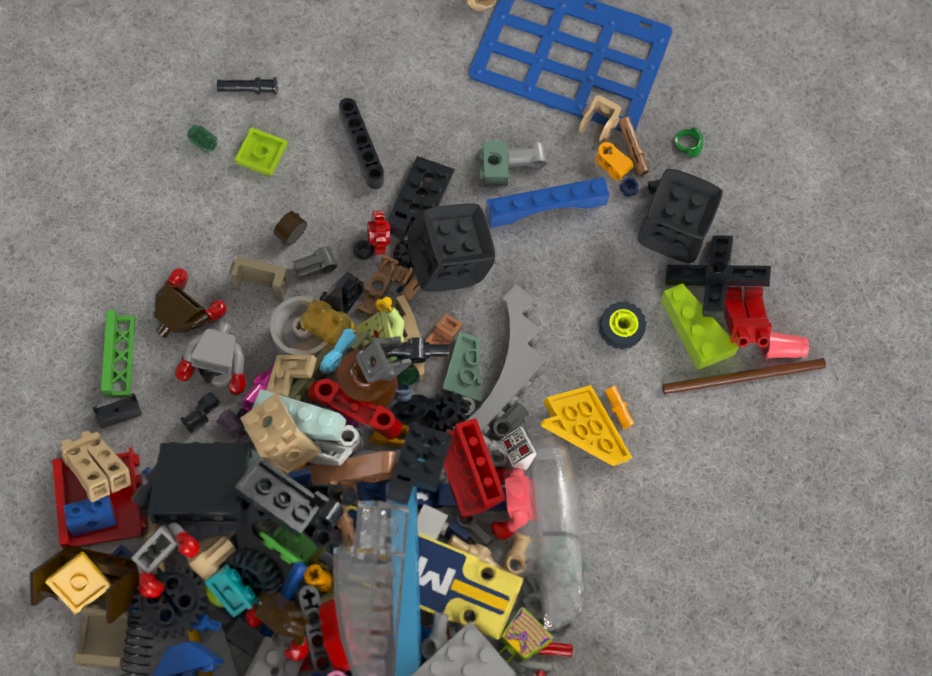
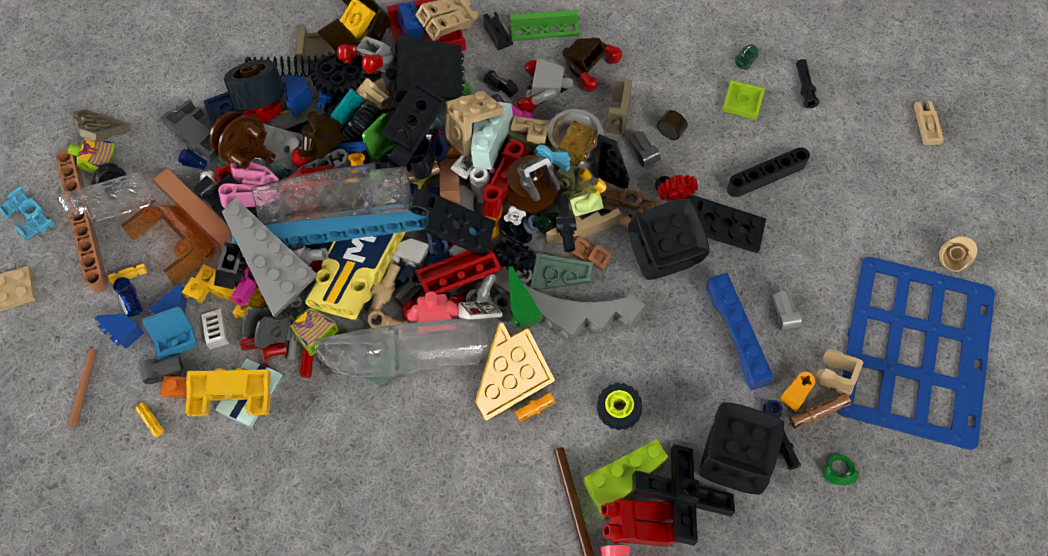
camera: 95 degrees right, 5 degrees down
(395, 406) = (514, 211): none -> white plate
(494, 152) = (764, 289): sand green brick -> none
(513, 404) = (523, 307): none -> green slope

